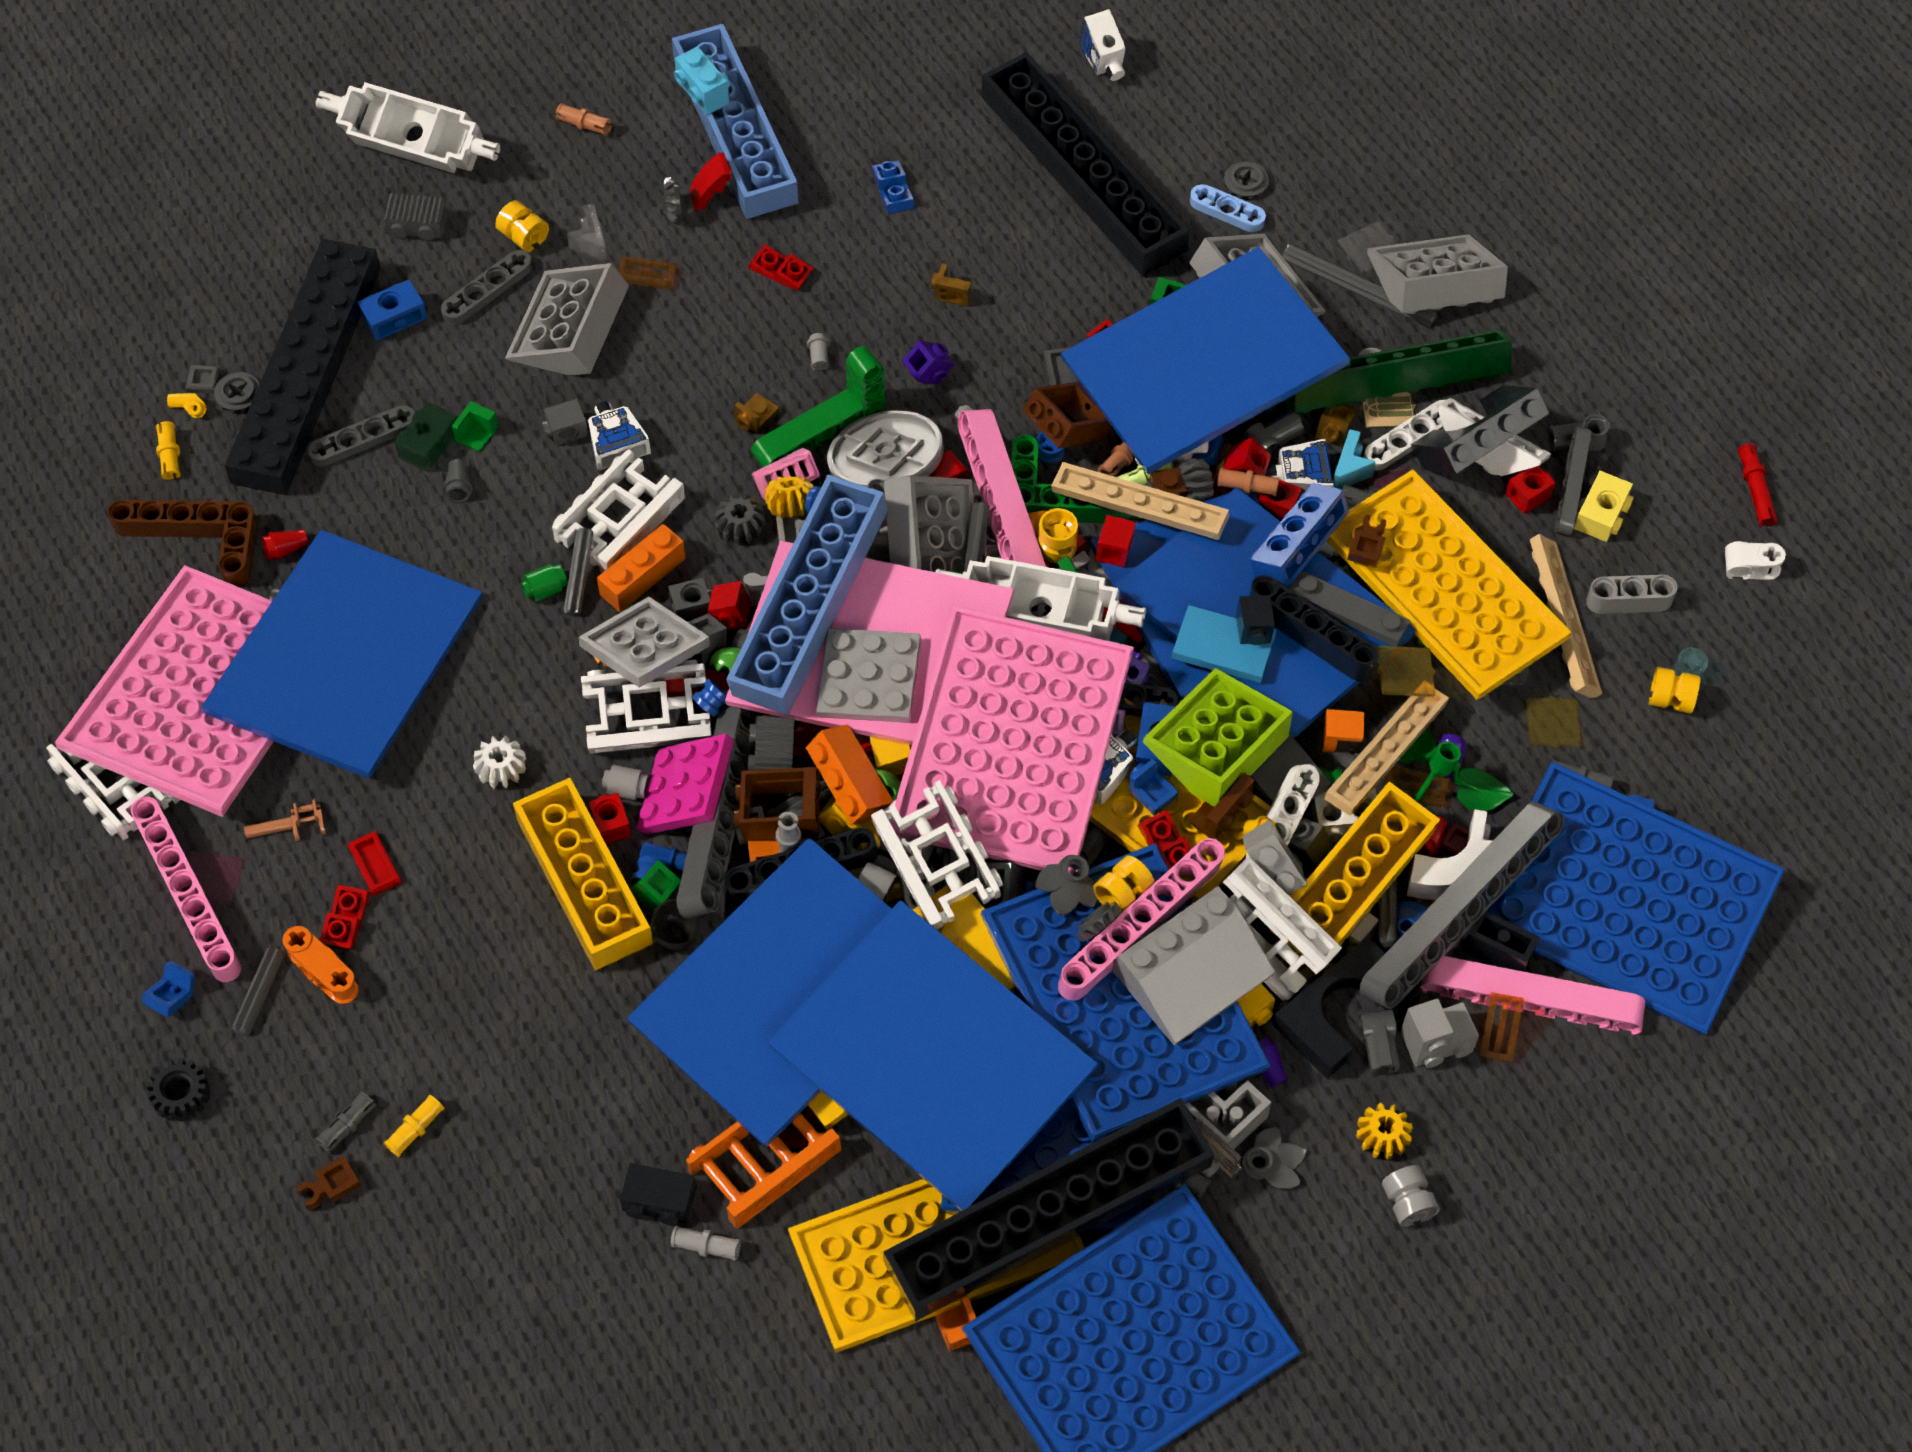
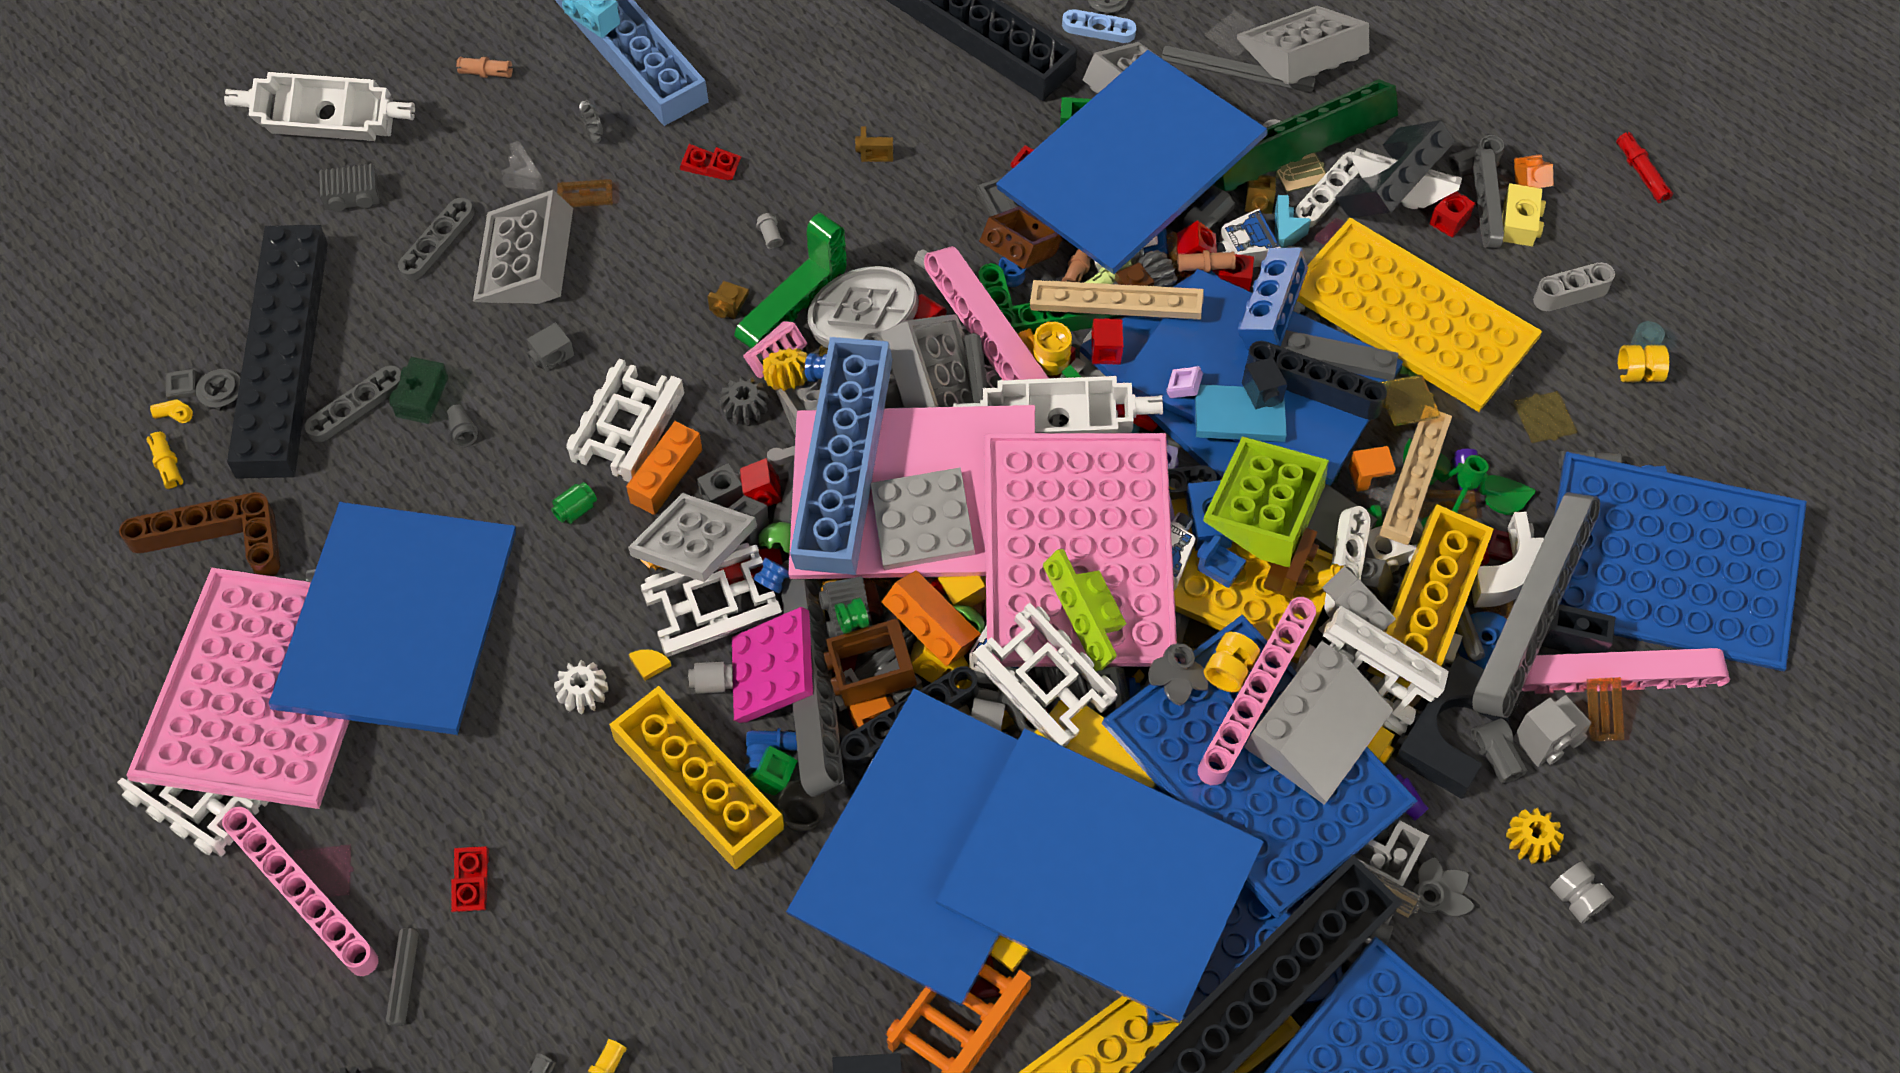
camera: 15 degrees left, 0 degrees up
(170, 991) = (312, 999): blue bracket -> none
(283, 543) = (304, 524): red cone -> none
(288, 823) = (385, 798): nougat piece -> none
(320, 964) = (459, 933): orange piece -> none
(374, 863) = (484, 817): red tile -> none
(392, 310) = (351, 278): blue brick -> none
(475, 426) = (463, 370): green panel -> none
(521, 225) = (454, 175): yellow wheel -> none
(572, 754) = (649, 662): none -> yellow tile
(578, 571) = (605, 485): dark grey axle -> none
(613, 829) = (706, 702): red brick -> none
(614, 433) = (601, 347): torso -> none
(710, 179) = (620, 96): red slope -> none
(772, 753) = (851, 615): none -> green wheel
(788, 833) = (891, 688): light grey pin -> none
(893, 186) = (791, 69): blue slope -> none
(928, 362) = (876, 218): dark purple brick -> none
(1001, 798) = (1087, 607): none -> lime bracket
(1097, 920) = (1219, 702): dark grey gear -> none
(1163, 832) = (1241, 600): red slope -> none
(1177, 600) = (1184, 382): none -> lavender tile
(1368, 543) = (1336, 292): reddish brown plate -> none
(1561, 603) = (1502, 291): tan plate -> none
(1632, 463) = (1533, 172): none -> orange brick
(1751, 560) = (1666, 234): white piece -> none

